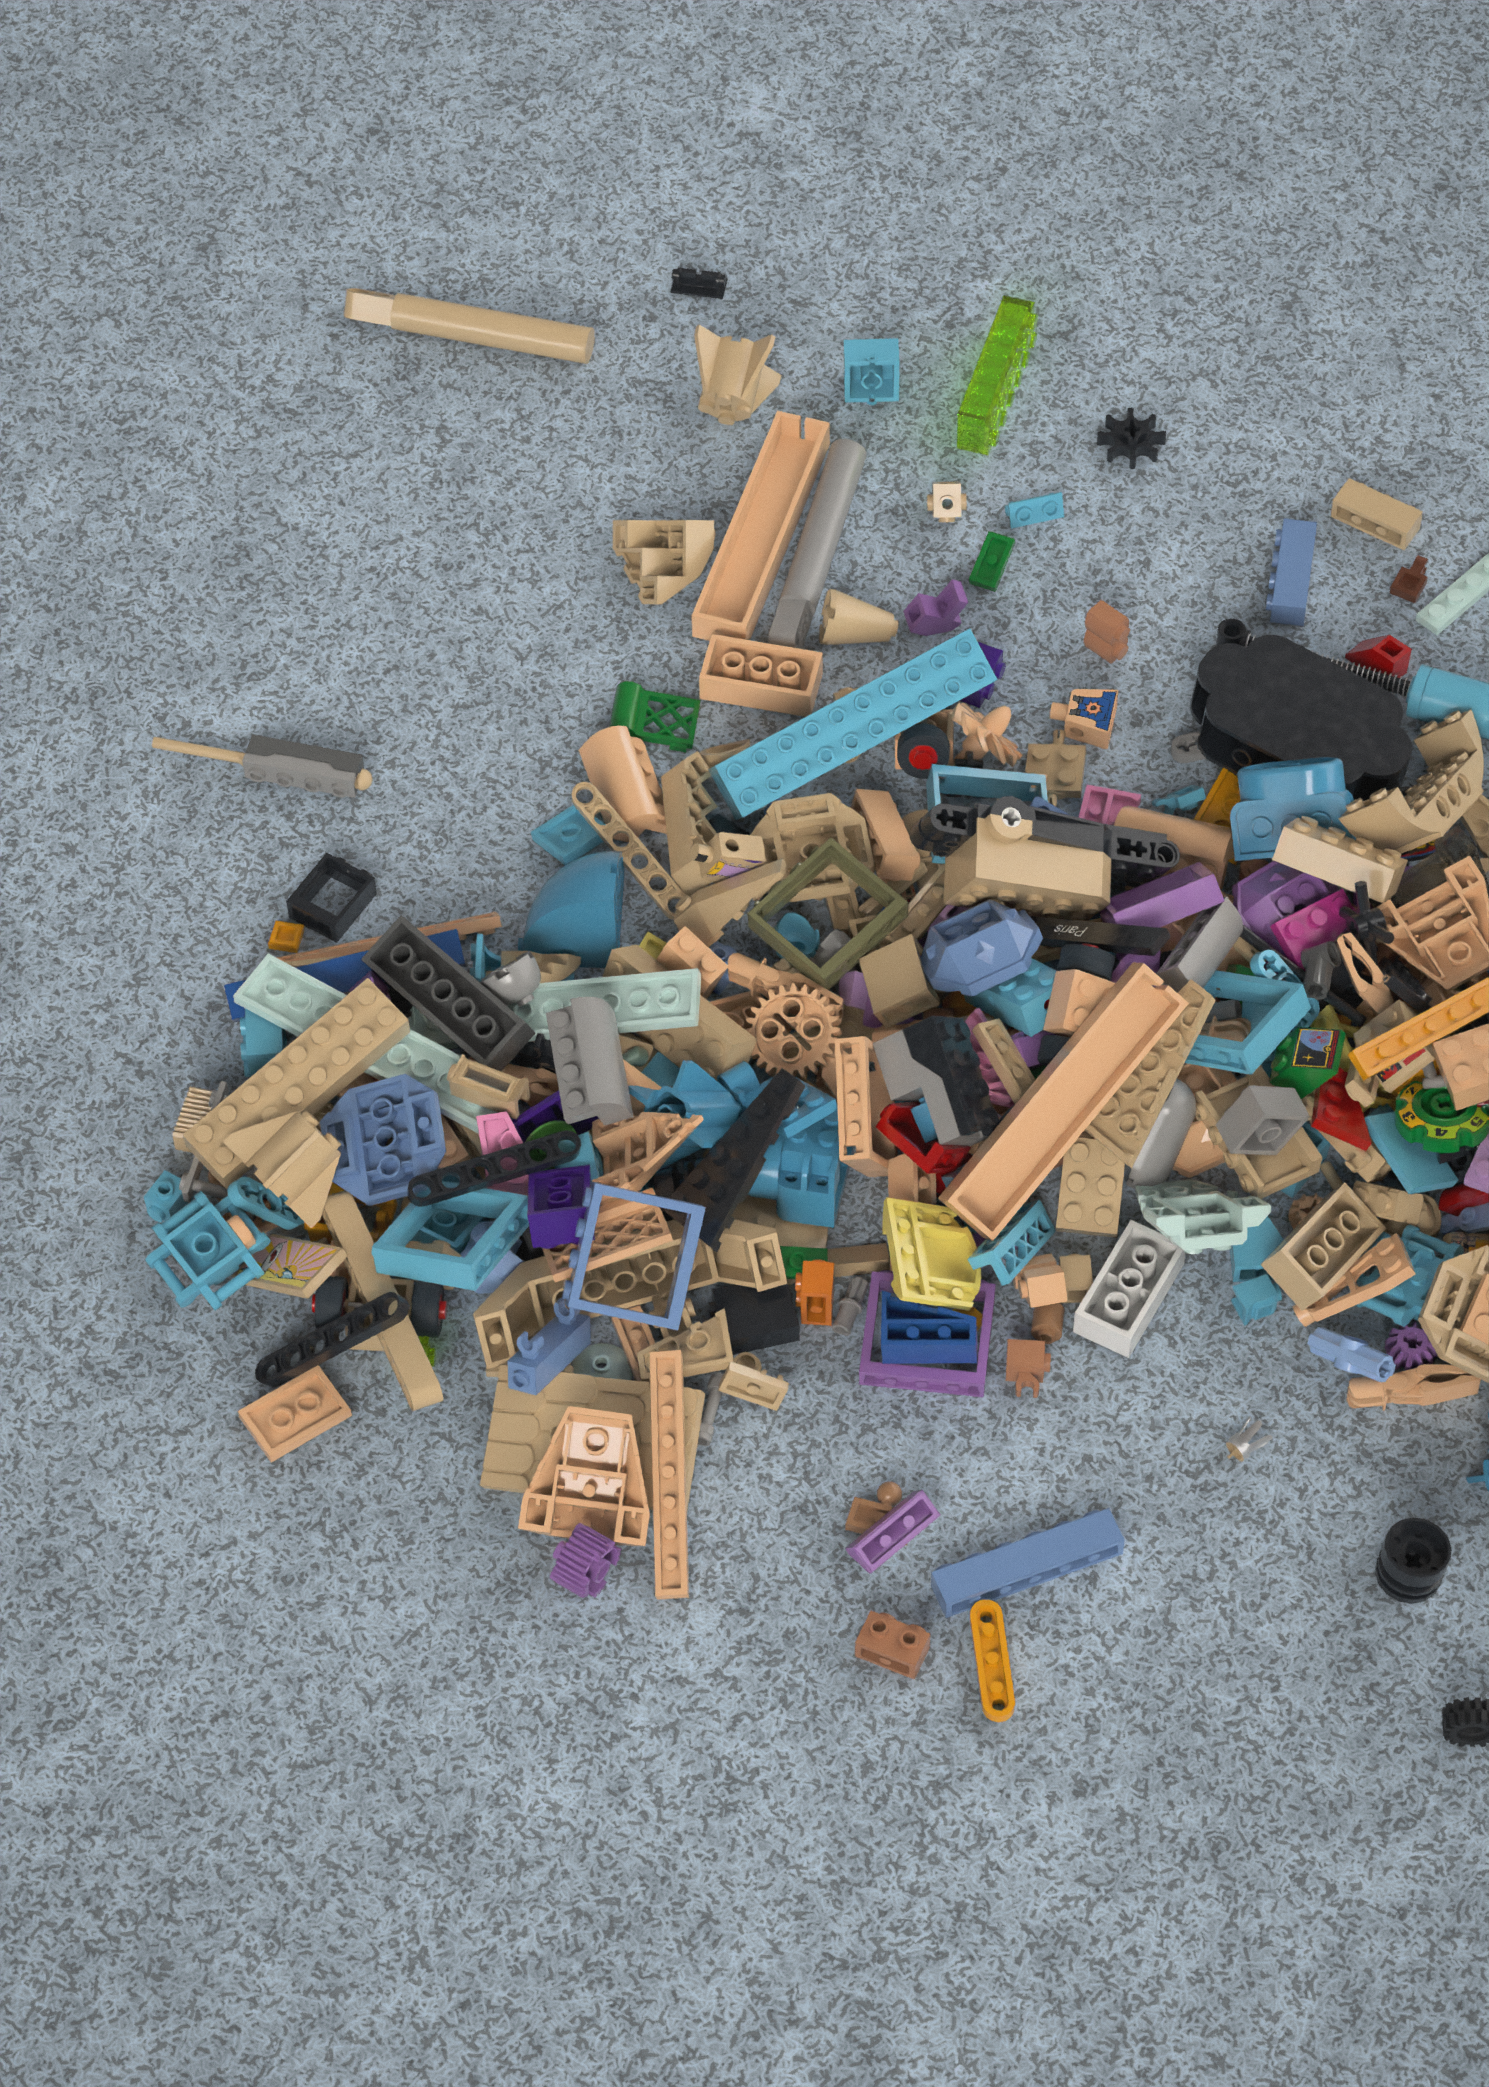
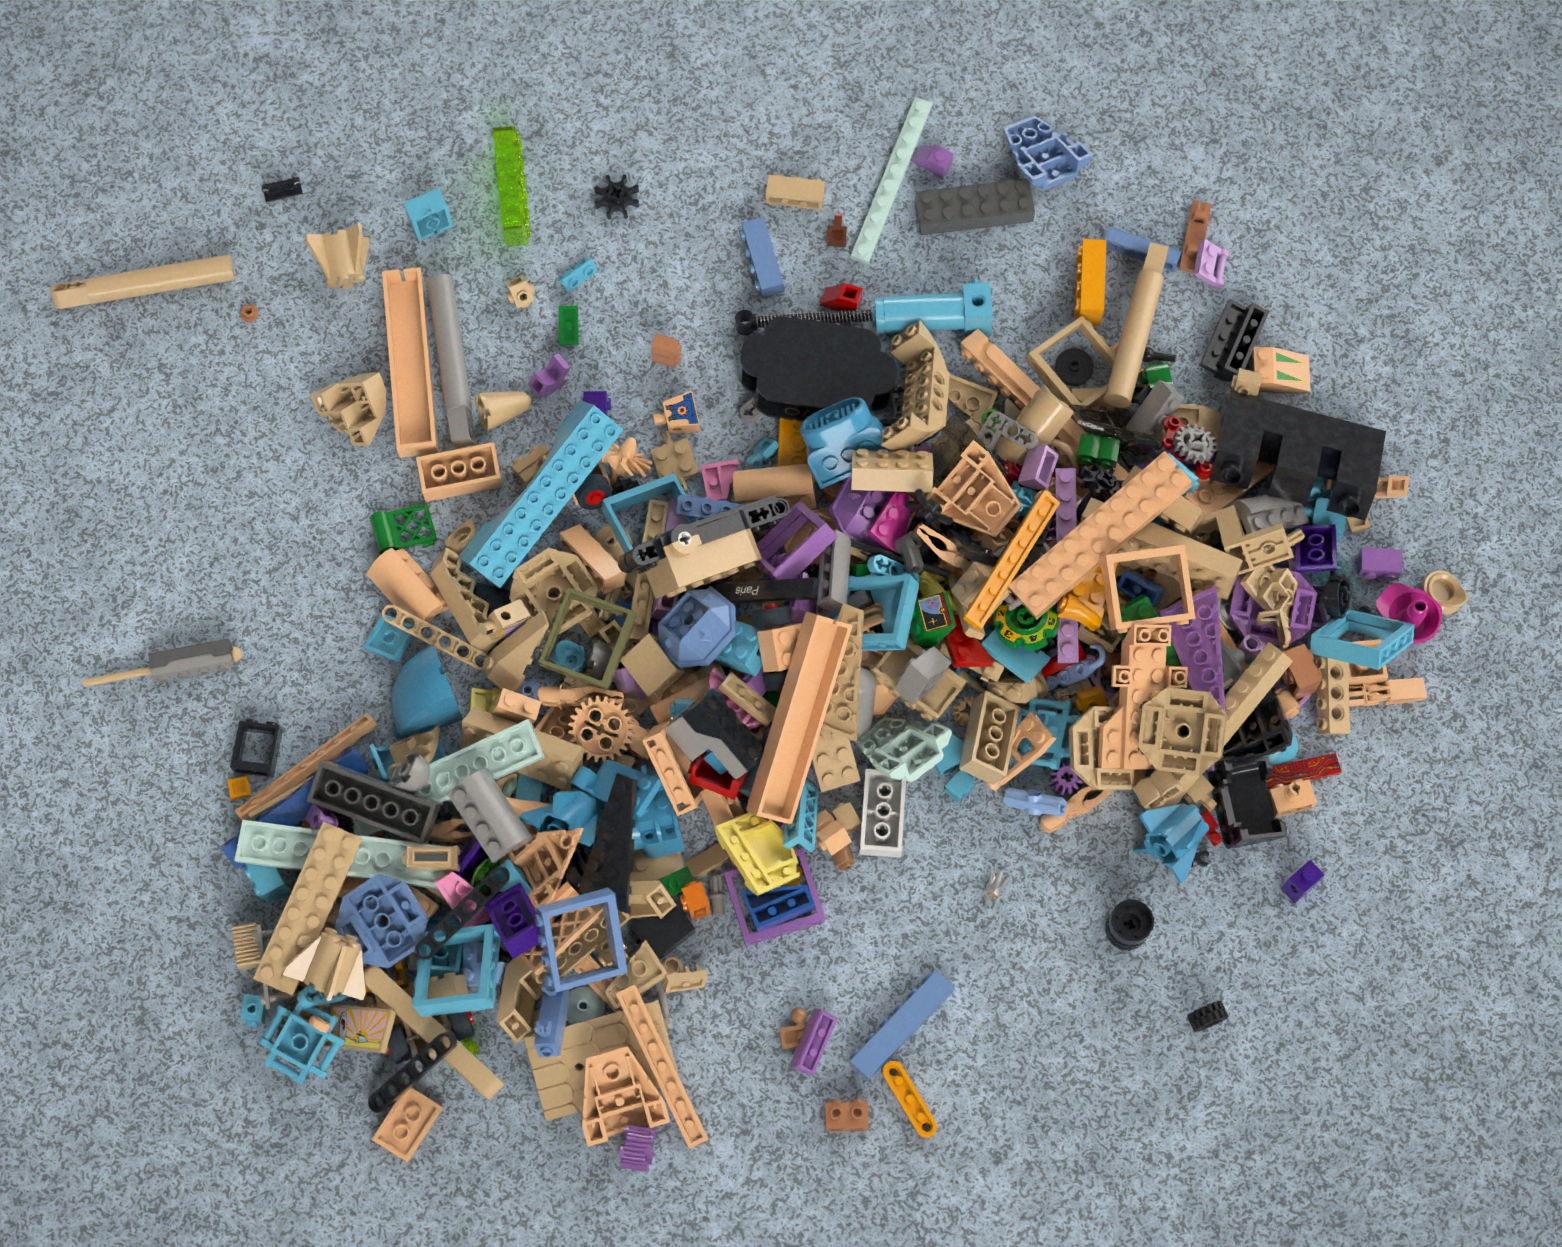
camera: 25 degrees left, 15 degrees up
(584, 407) = (249, 317): none -> nougat plate
(1026, 1364) = (842, 890): nougat brick -> none

